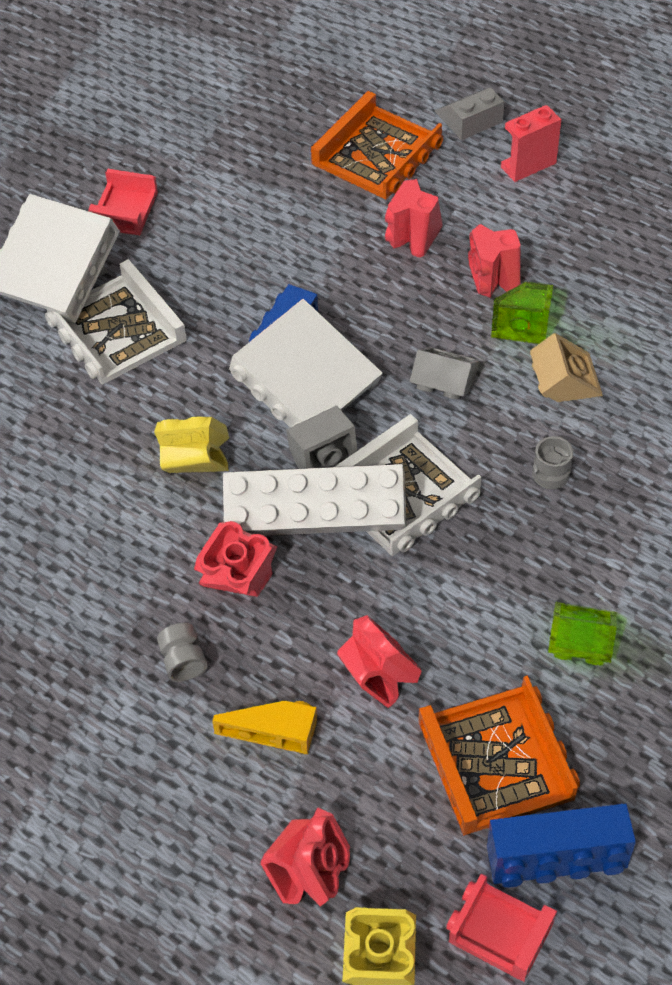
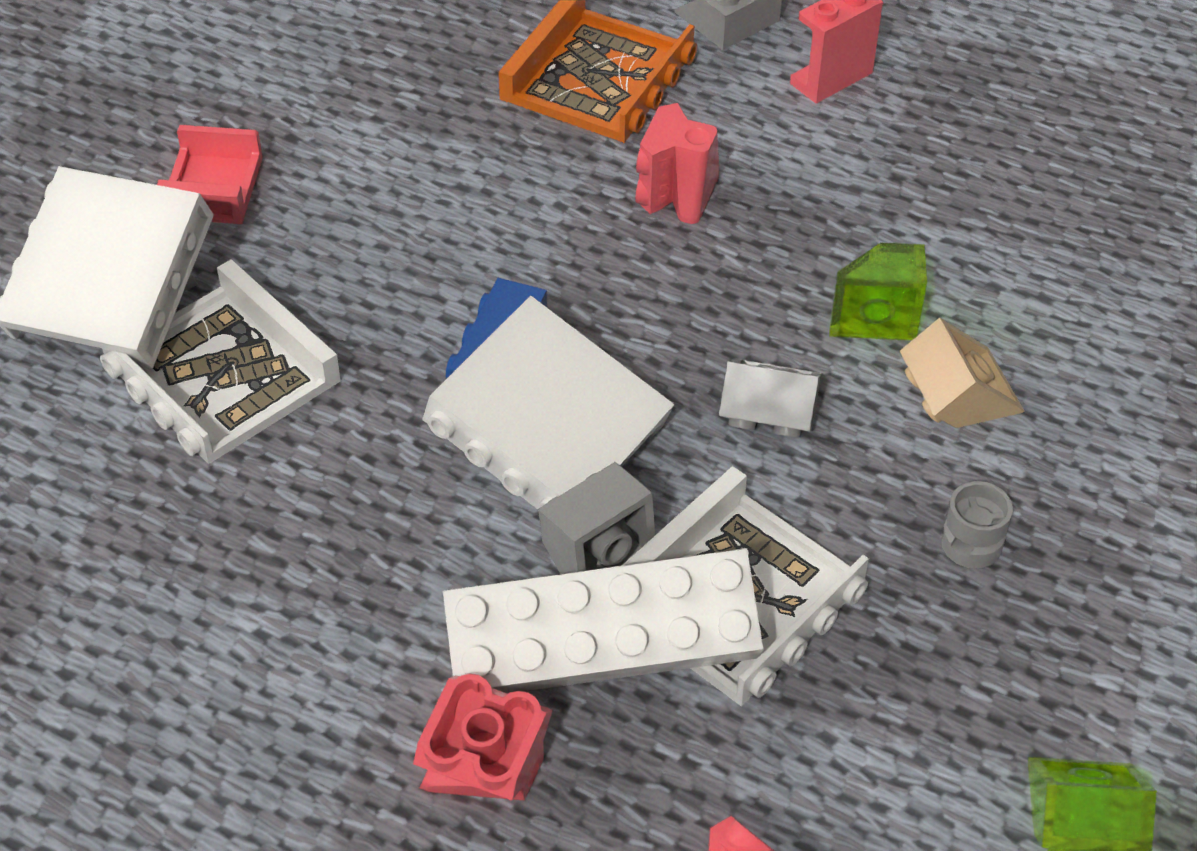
camera: 10 degrees left, 5 degrees down
(192, 445) = (377, 549): light yellow piece -> none
(494, 259) = (816, 216): coral piece -> none

